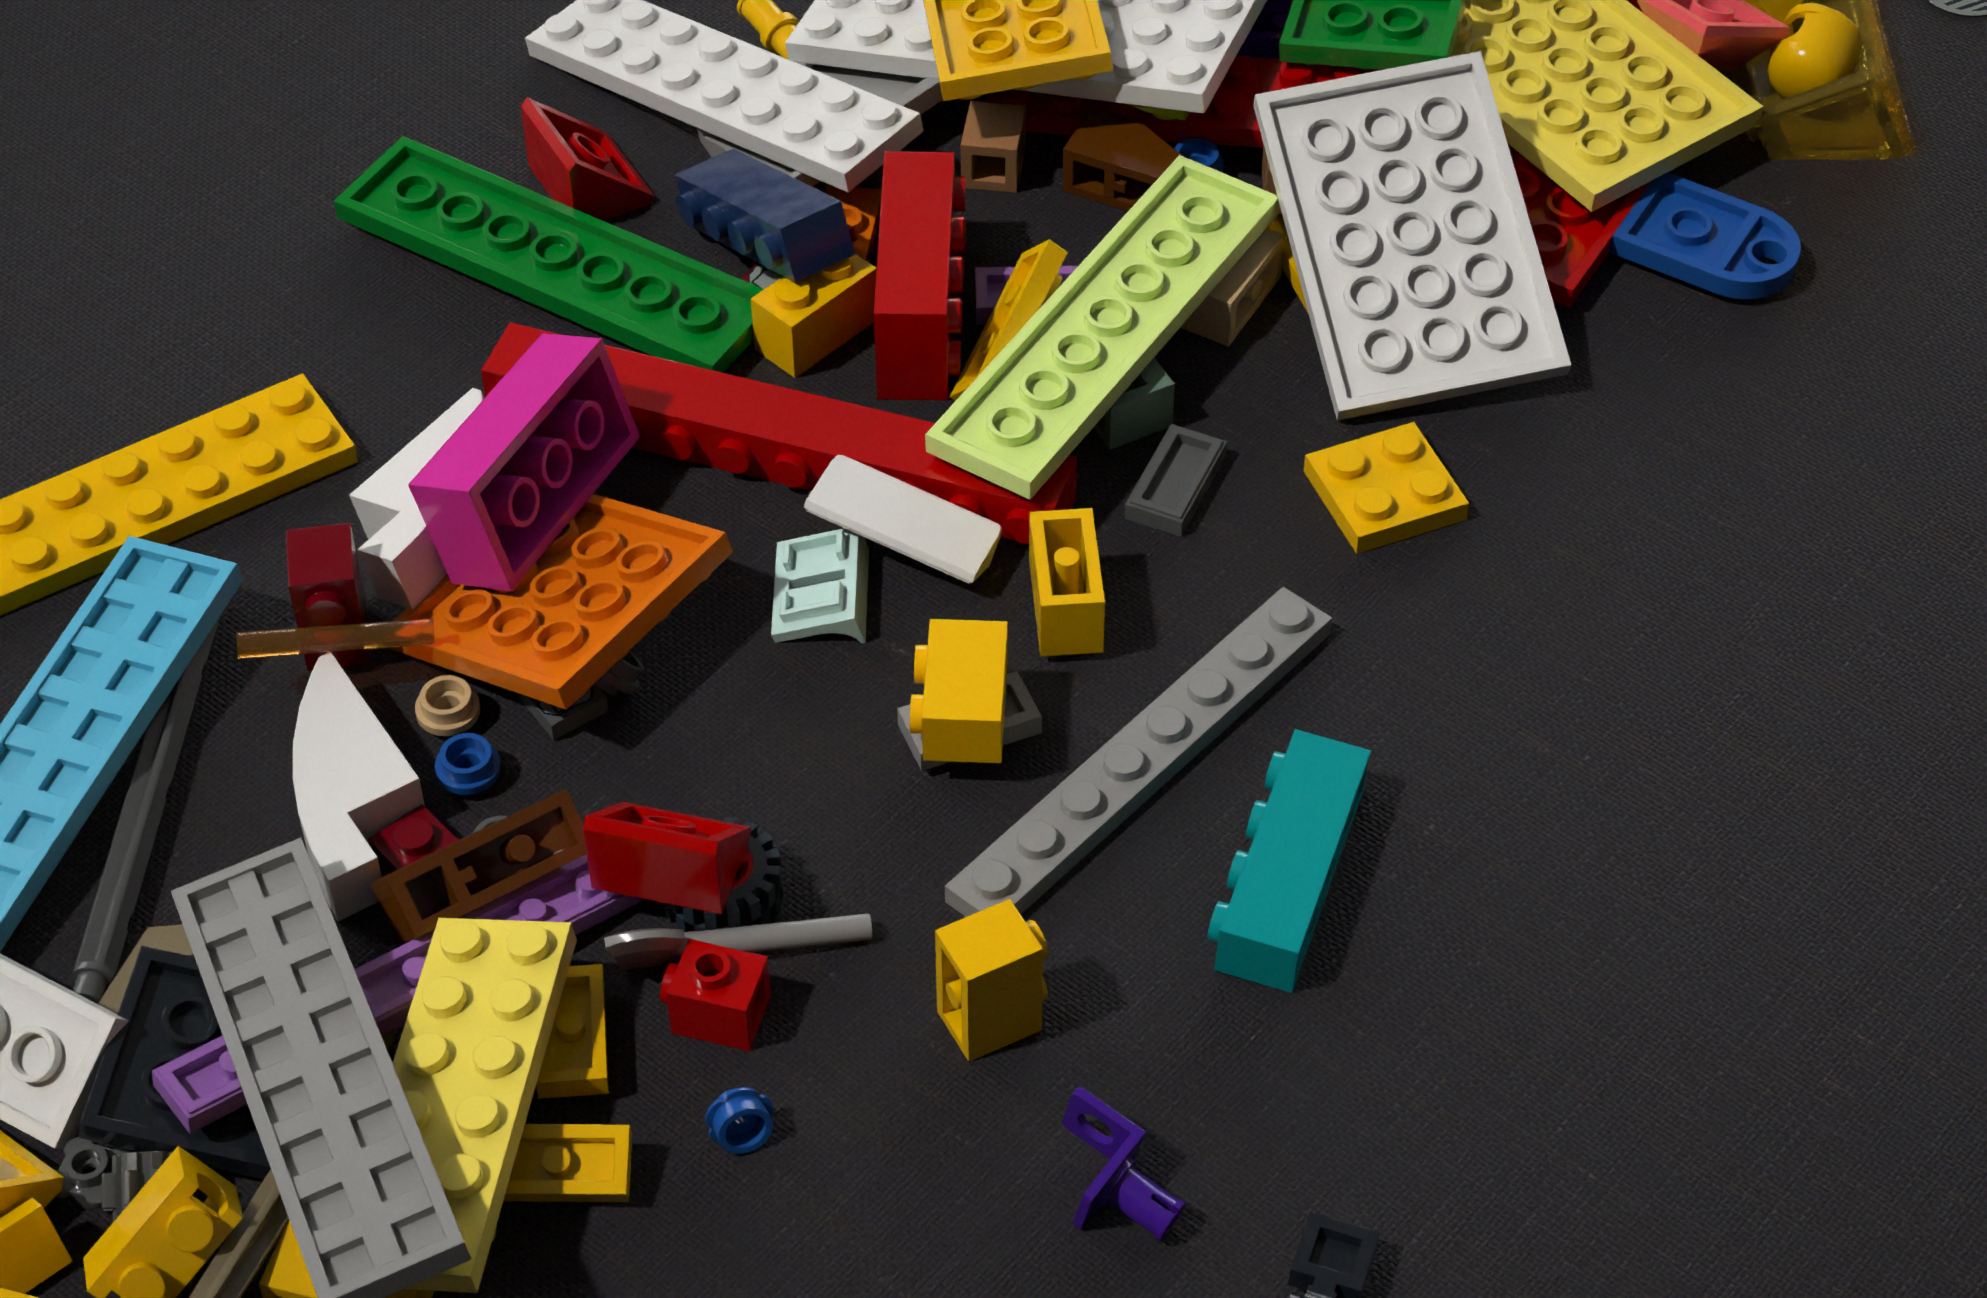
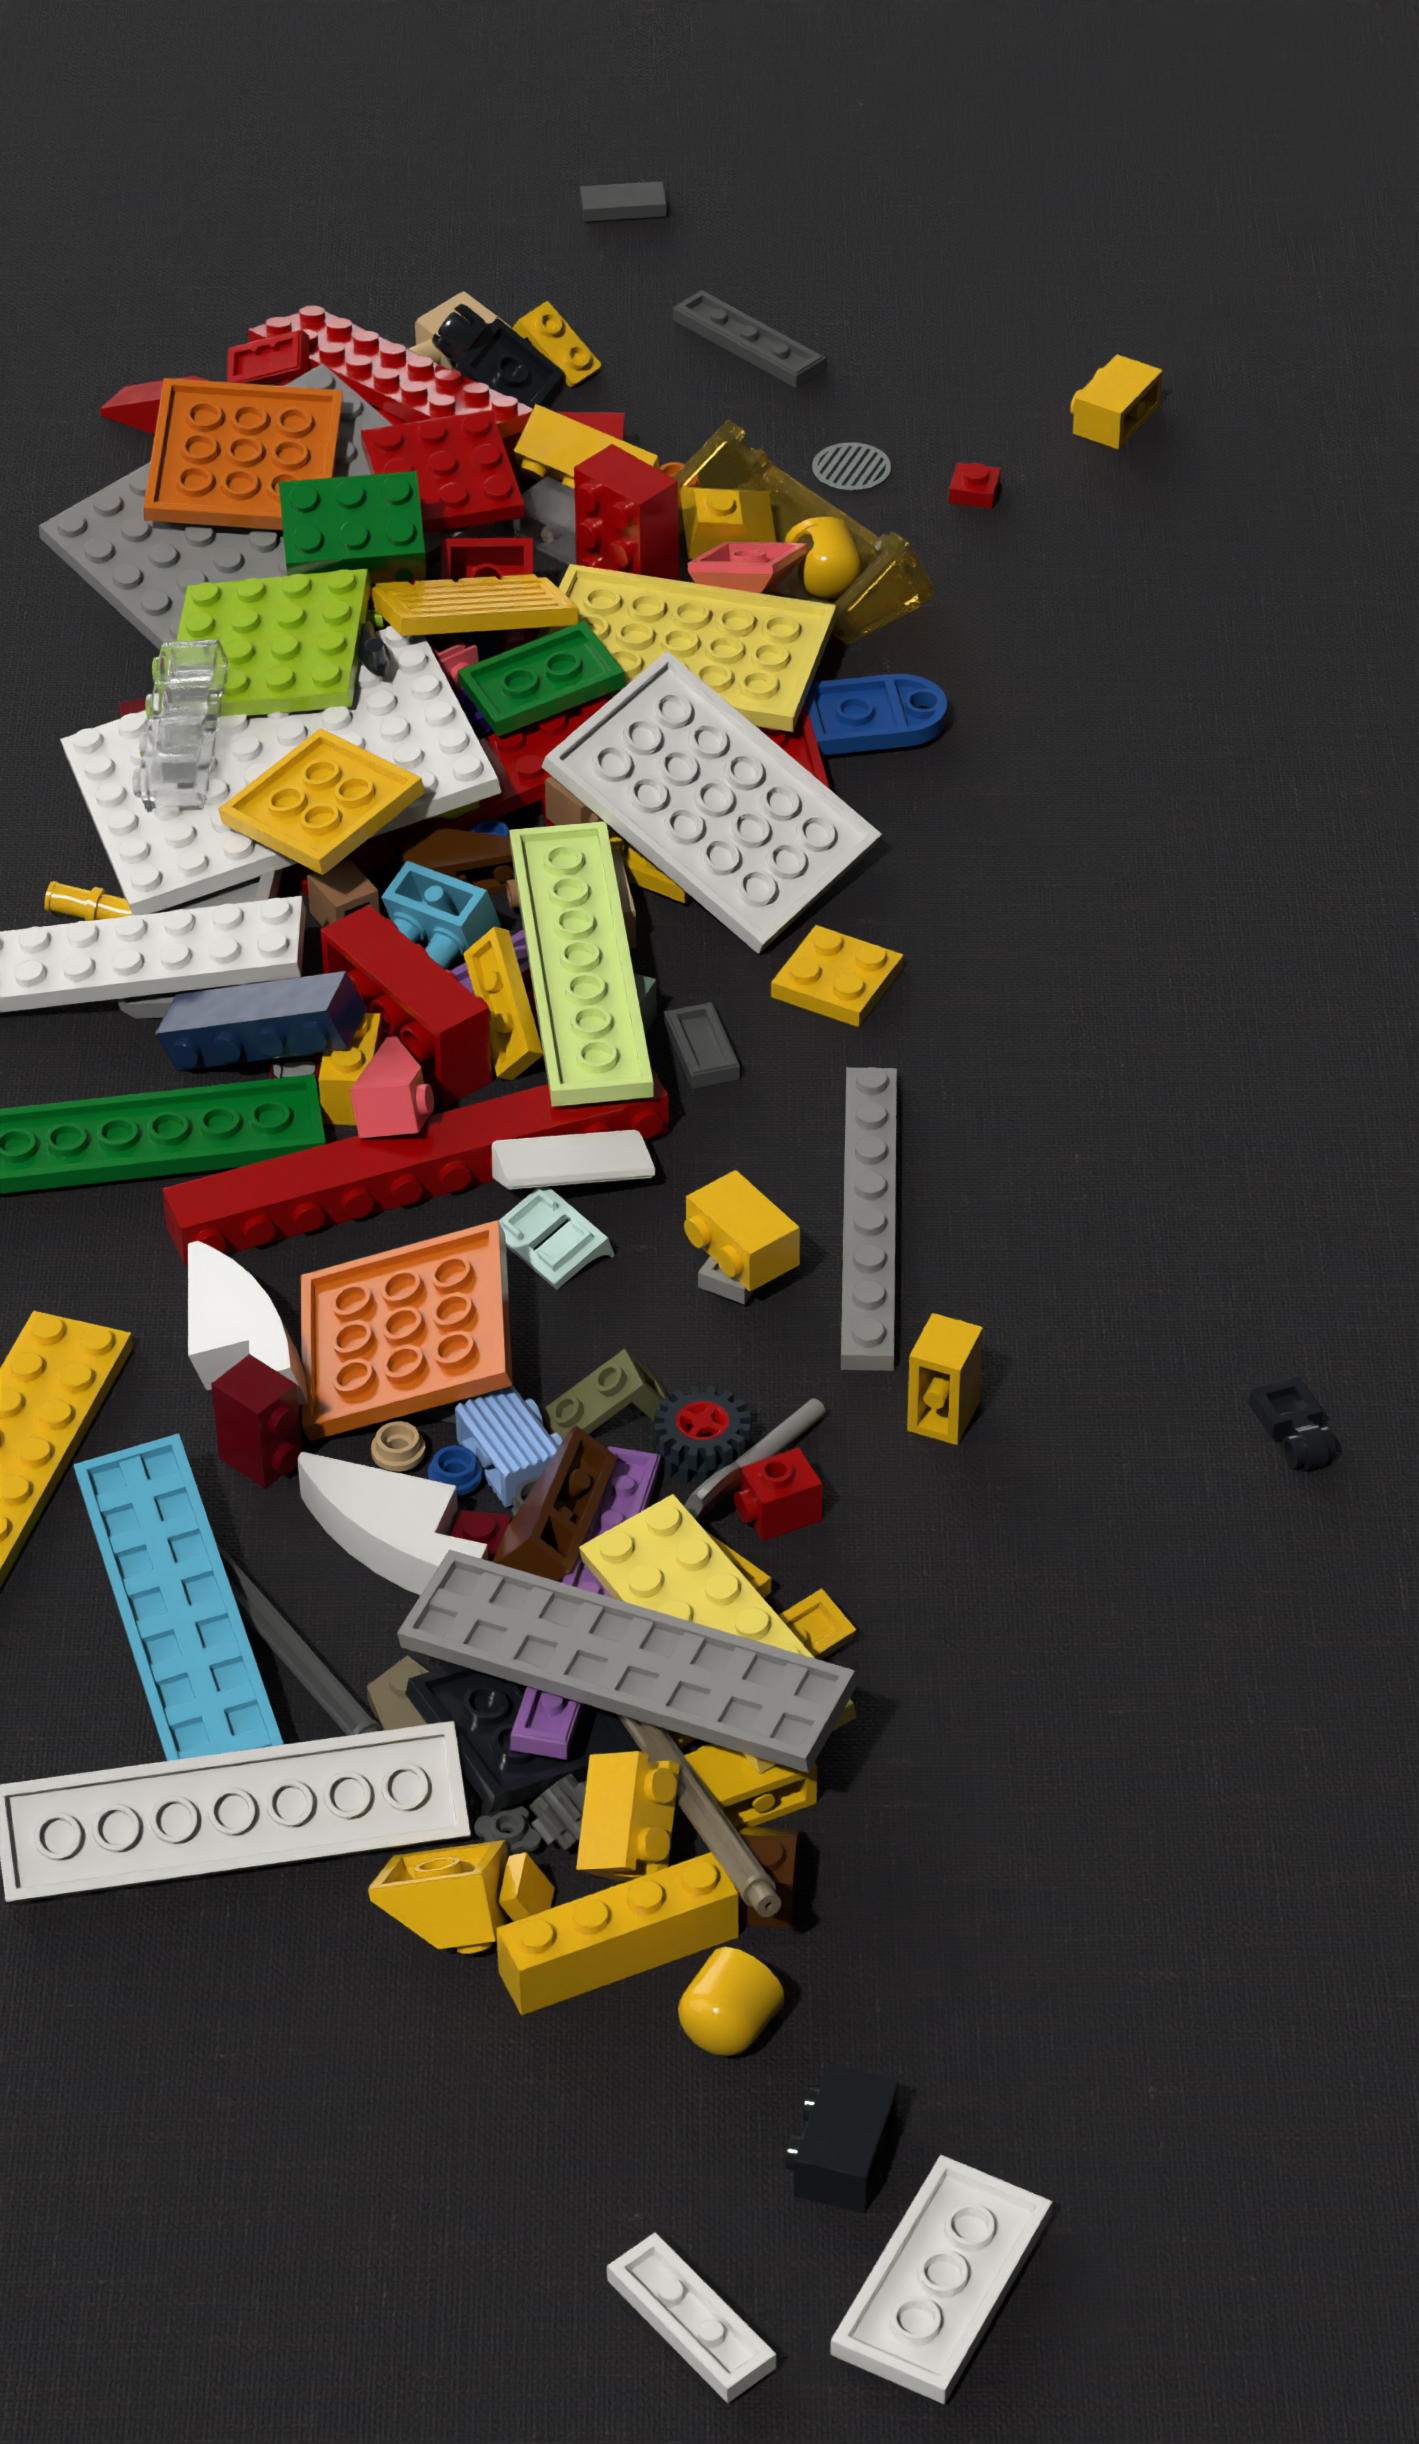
camera: 40 degrees left, 5 degrees down
(335, 638) = (299, 1439): clear orange bar -> none
(525, 461) = (305, 1257): dark pink brick -> none
(536, 757) = (506, 1439): none -> light blue brick
(580, 164) = (57, 1073): red slope -> none
(664, 855) = (676, 1429): red slope -> none
(692, 774) = (604, 1393): none -> olive bracket
(740, 1120) = (871, 1552): blue plate -> none
(799, 348) = (391, 1093): none -> coral slope
(1046, 196) = (439, 911): none -> medium azure brick
(1066, 582) = (720, 1133): yellow brick -> none
(1119, 1181) = (1123, 1441): dark purple bracket -> none
(1290, 860) = (1030, 1215): teal brick -> none

